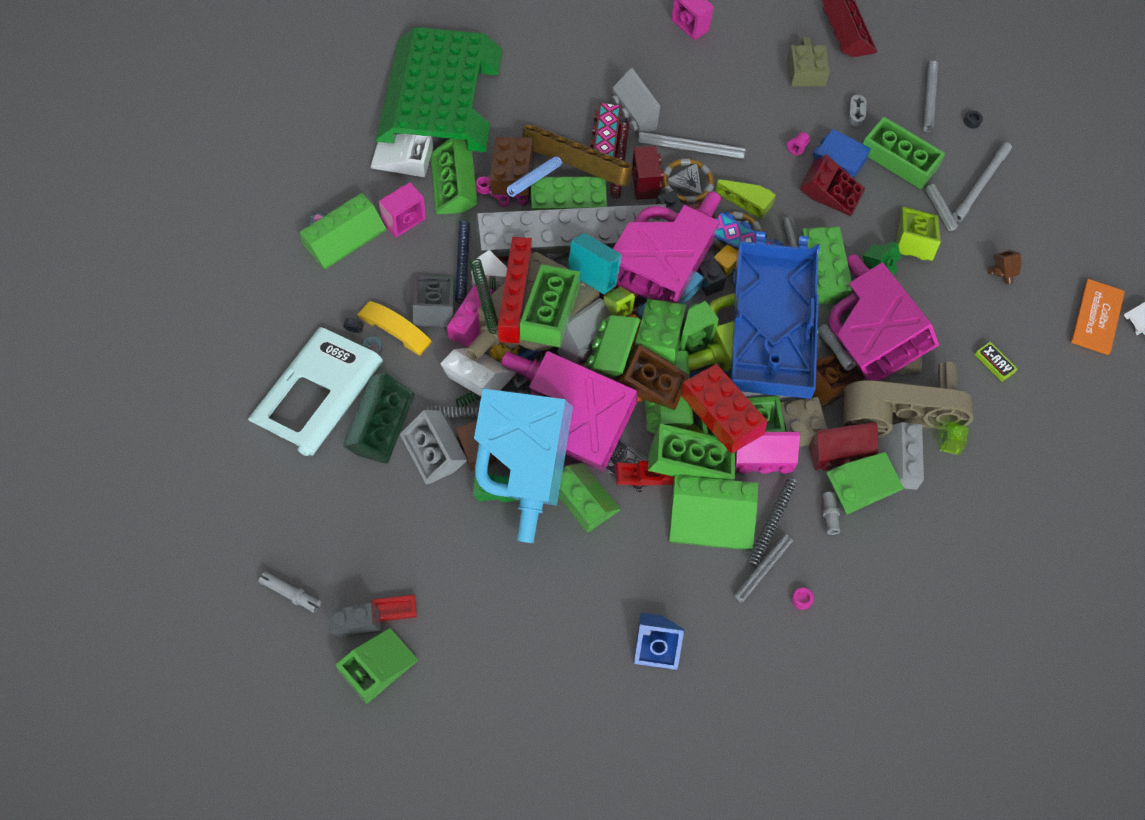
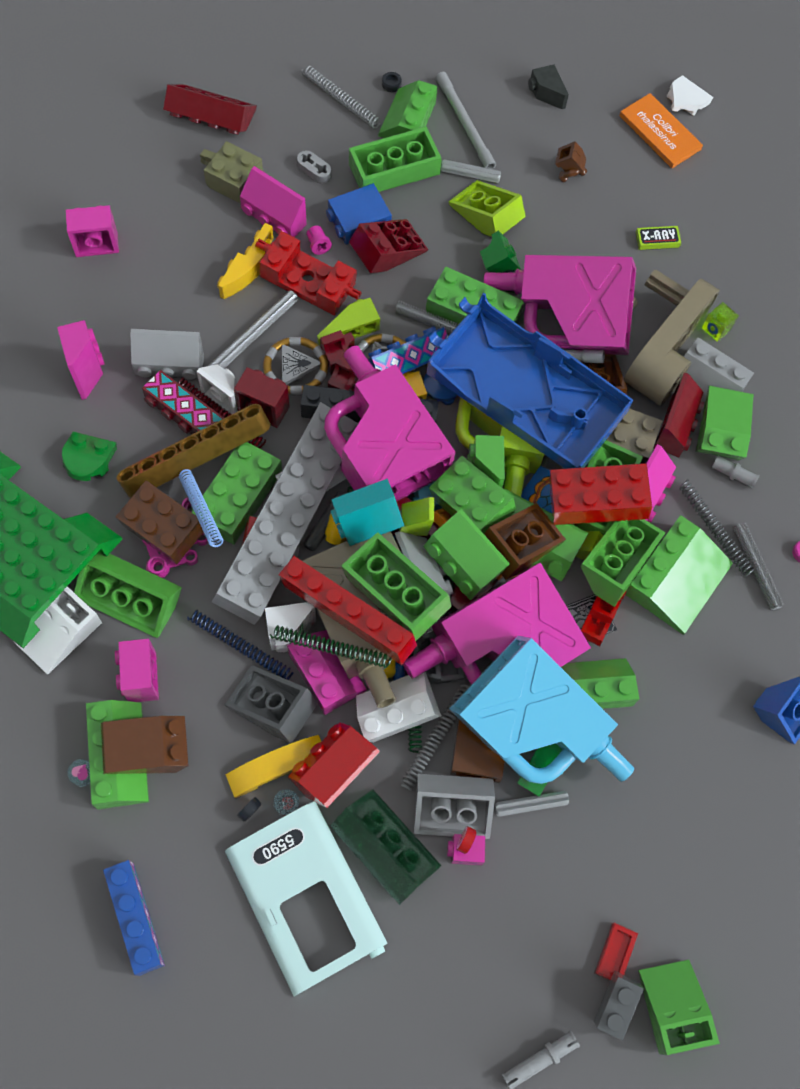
camera: 60 degrees left, 5 degrees up
(243, 298) = (133, 918): none -> blue brick
(355, 239) = (144, 745): none -> reddish brown slope
(407, 470) = (475, 855): none -> dark pink brick
(409, 457) = (466, 840): none -> red tile
(412, 351) = (333, 764): none -> red slope
(468, 498) = (531, 803): none -> light grey axle
(531, 104) = (87, 456): none -> green slope
(592, 56) = (82, 356): none -> dark pink slope
(636, 138) = (219, 386): none -> white slope
(728, 201) = (334, 346): none -> dark red brick
(741, 114) = (245, 267): none -> yellow slope
(763, 134) = (287, 265): none -> red brick
(800, 101) = (273, 203): none -> dark pink slope
(958, 143) = (409, 109): none -> bright green slope
(1063, 217) = (548, 86): none -> pearl dark grey slope

